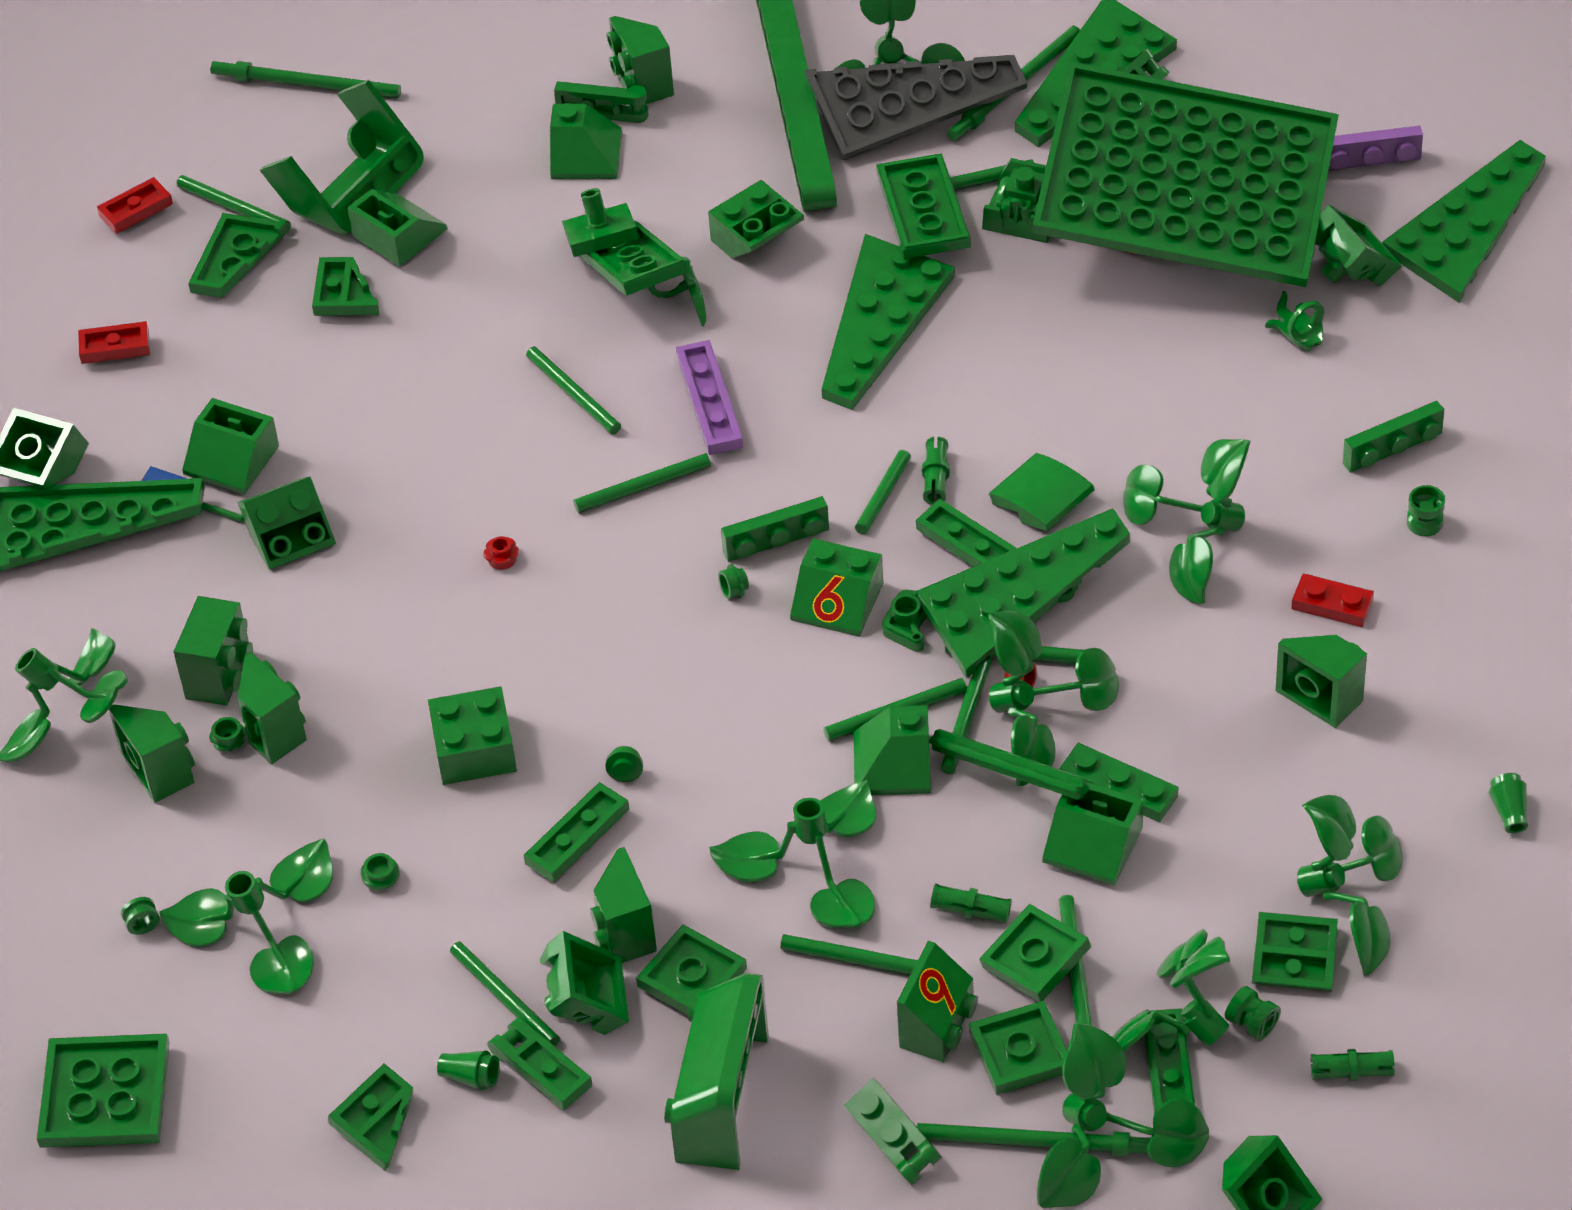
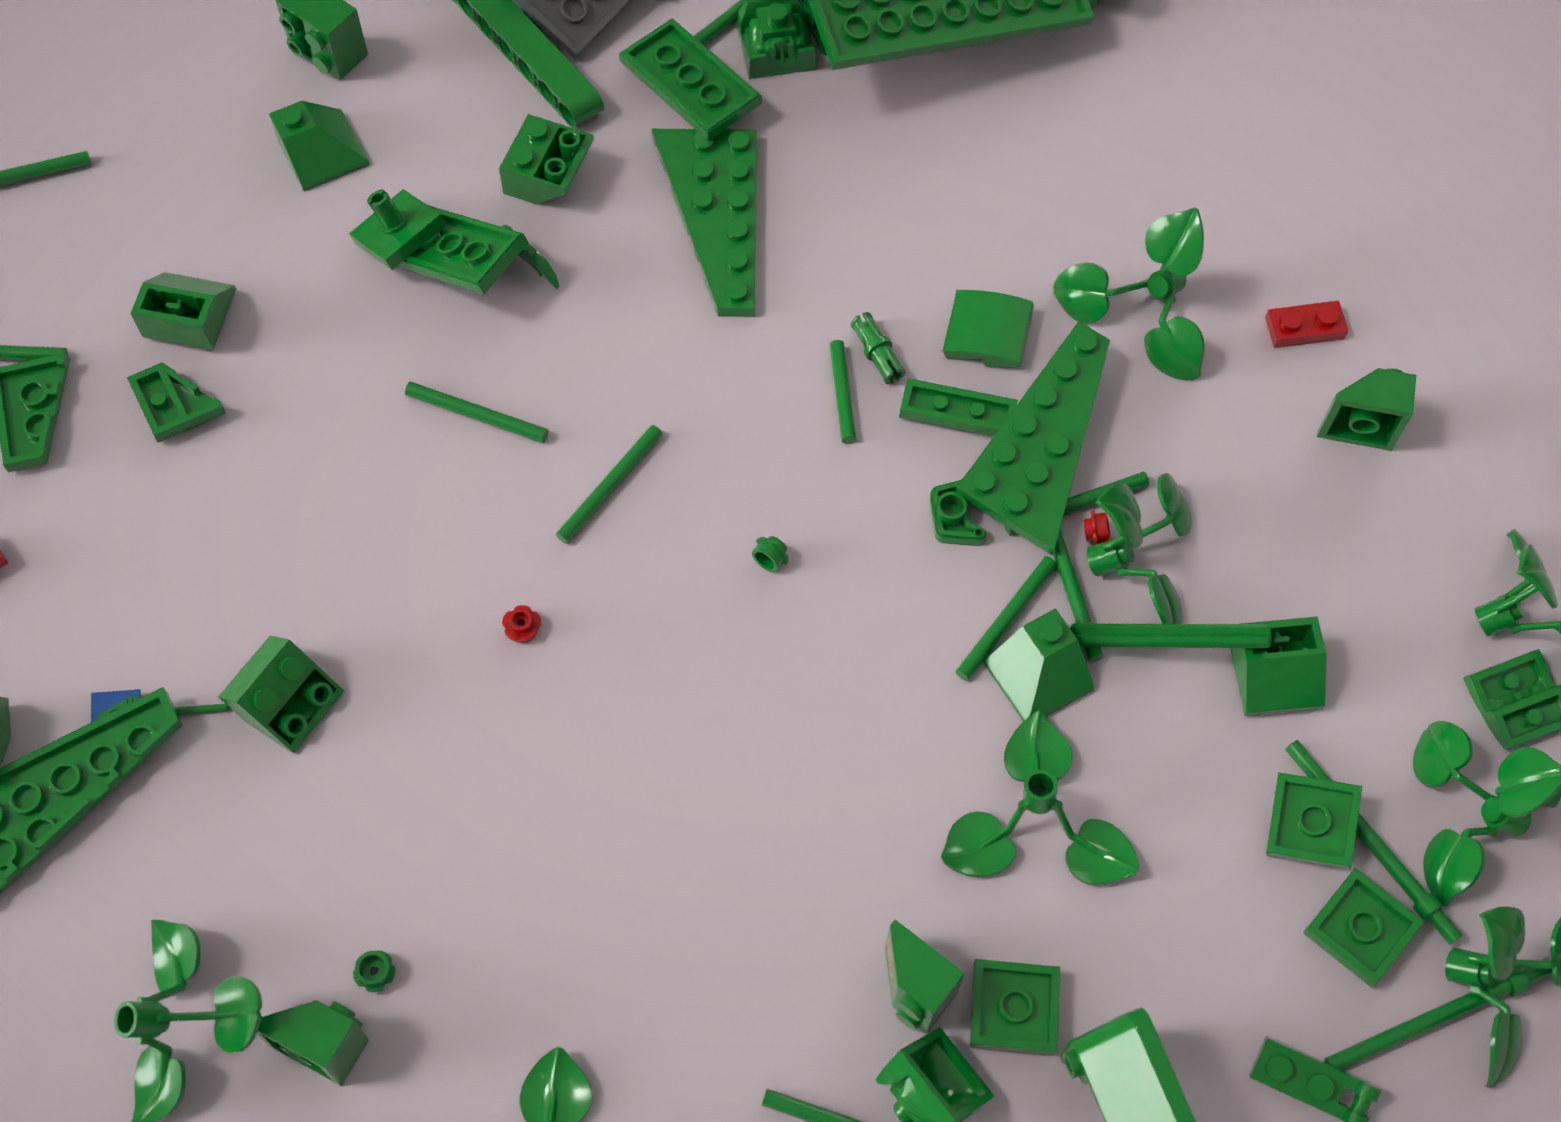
camera: 35 degrees left, 15 degrees up
(212, 650) = (306, 886): green brick -> none
(230, 445) = (168, 635): green slope -> none
(269, 710) = (411, 928): green slope -> none
(380, 871) = (634, 1051): green plate -> none
(384, 162) = (122, 255): green windscreen -> none
(472, 735) = (632, 849): green brick -> none
(576, 832) = (801, 905): green plate -> none
(606, 100) = (314, 87): green plate -> none
(624, 764) = (799, 805): green plate -> none
(709, 397) = (617, 363): medium lavender plate -> none
(775, 529) = (775, 479): green plate -> none
(837, 587) = (874, 515): green slope -> none
(847, 954) = (1149, 903): green bar -> none
(935, 1004) = (1269, 928): green slope -> none
(970, 903) = (1216, 794): green pin -> none
(1118, 776) = (1253, 597): green plate -> none
(1168, 1061) = (1501, 878): green tile -> none
(1298, 326) = (1092, 63): green piece -> none
(1393, 436) = (1253, 140): green plate -> none
(1425, 510) = (1328, 201): green wheel -> none

